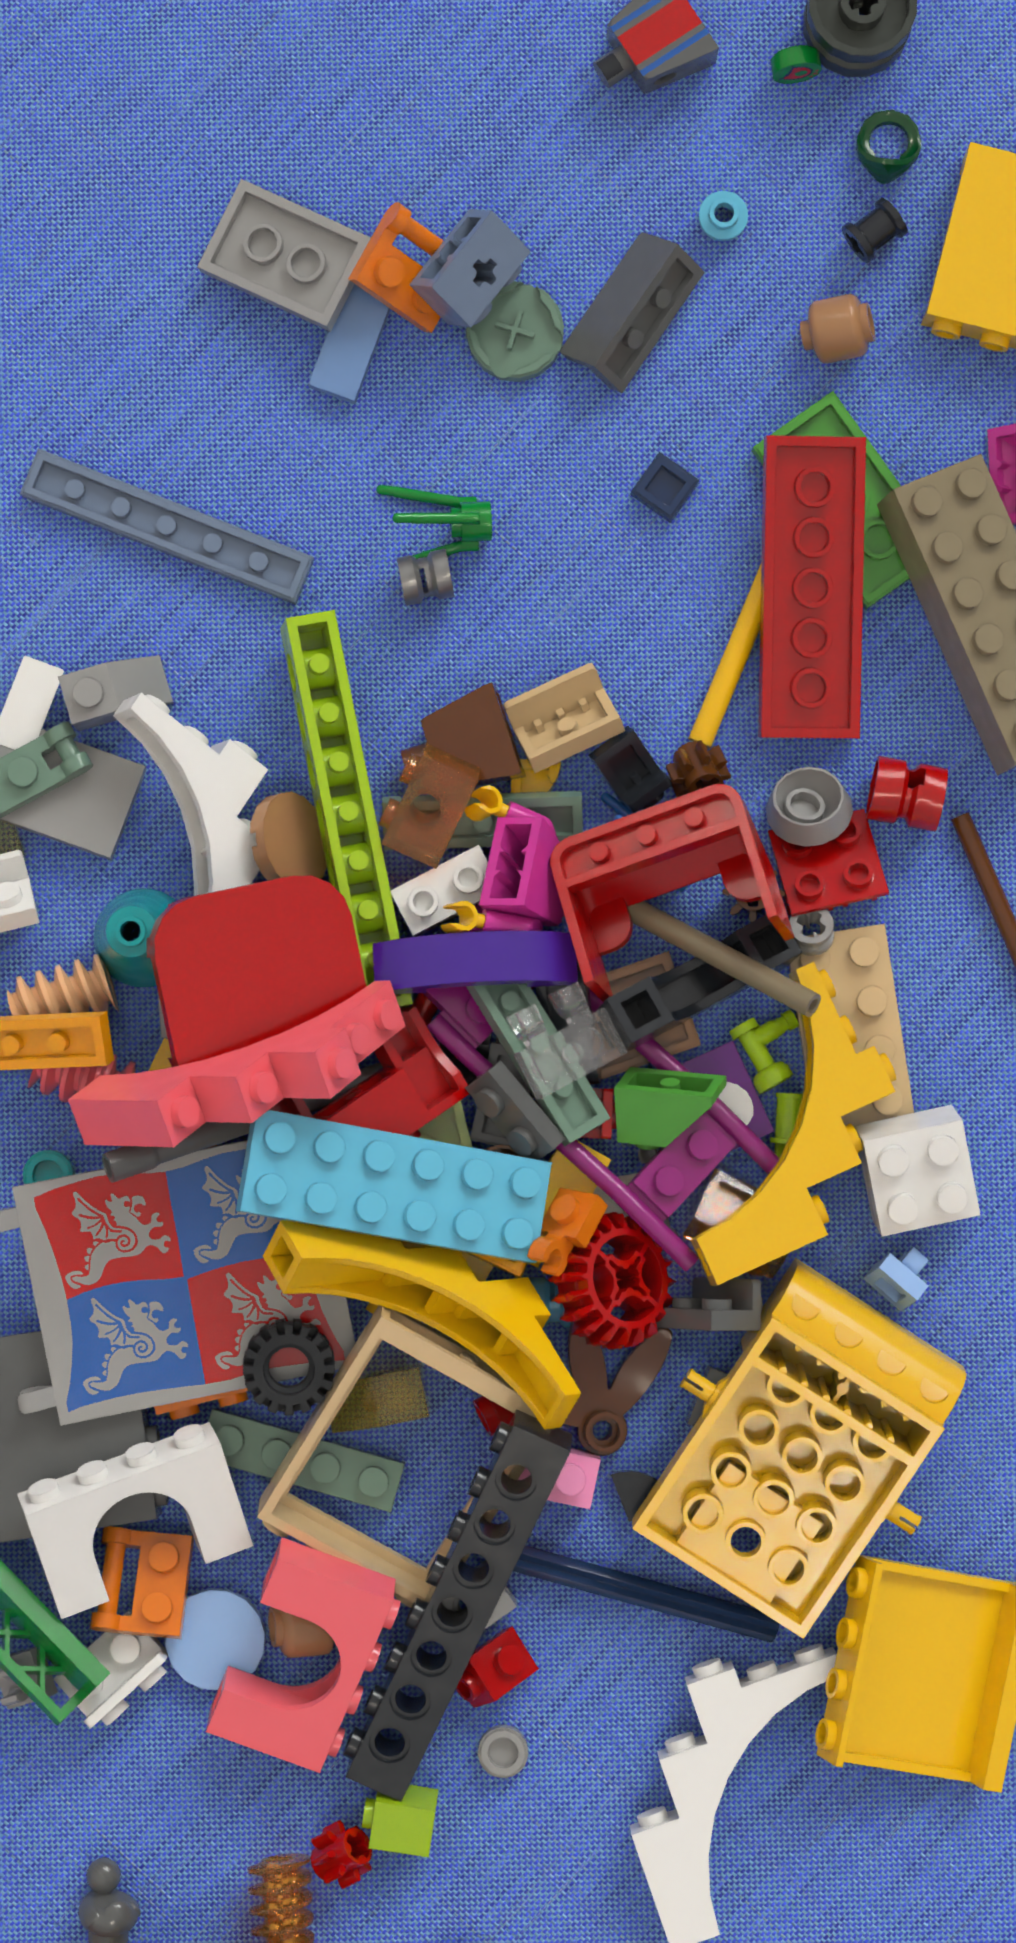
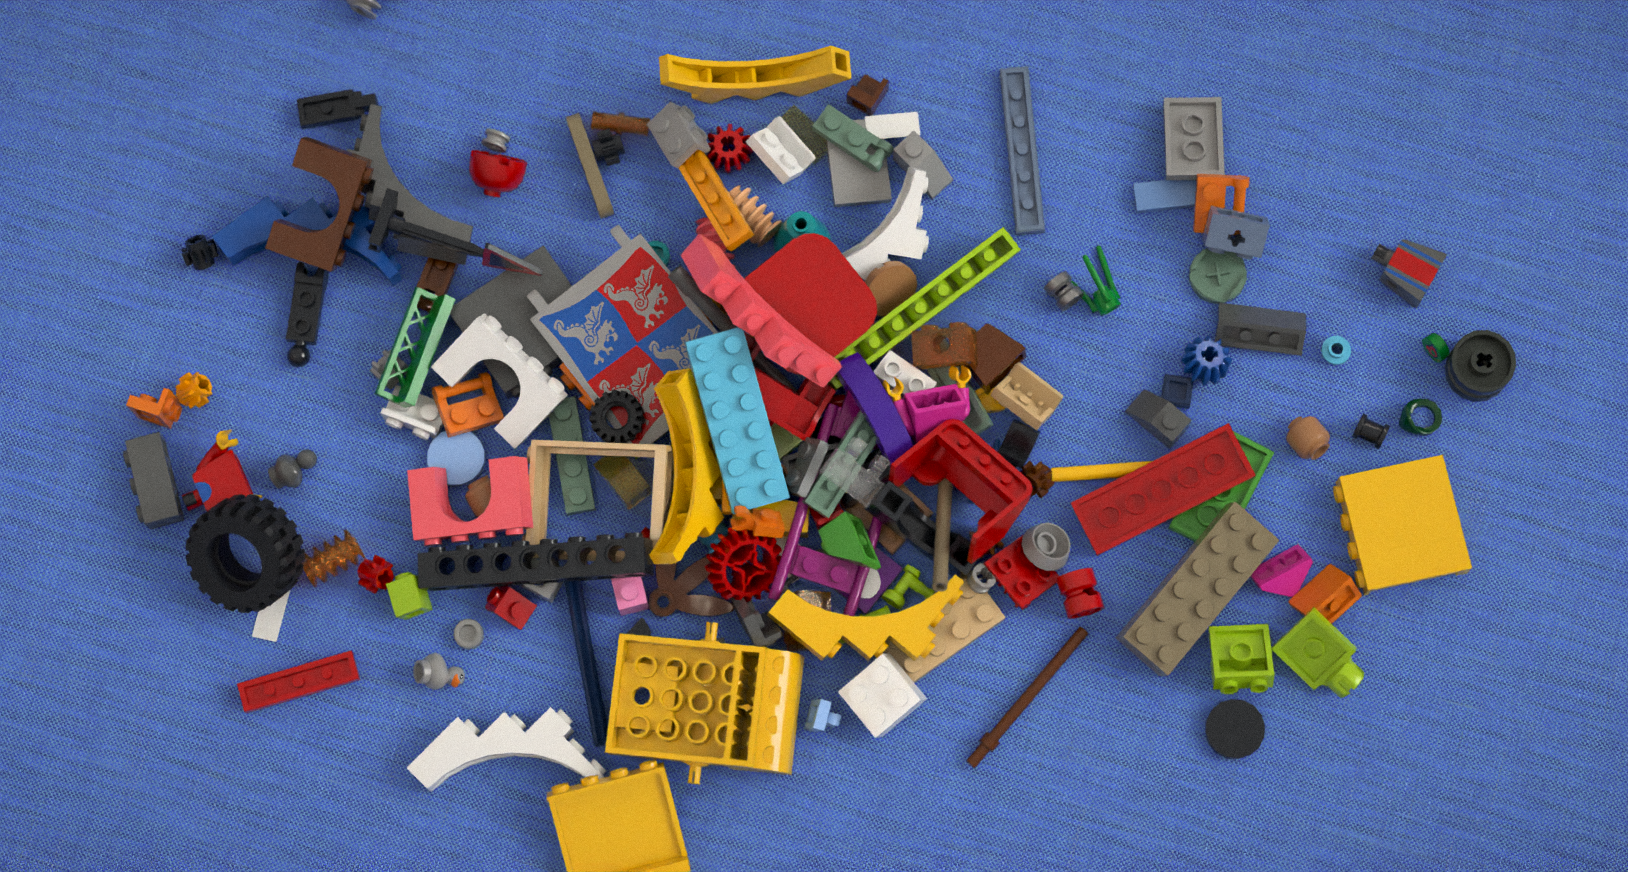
camera: 65 degrees right, 10 degrees down
(542, 1836) = (434, 672): none -> light grey animal
(640, 402) = (1202, 350): none -> blue gear
(694, 535) = (1159, 417): none -> dark grey slope

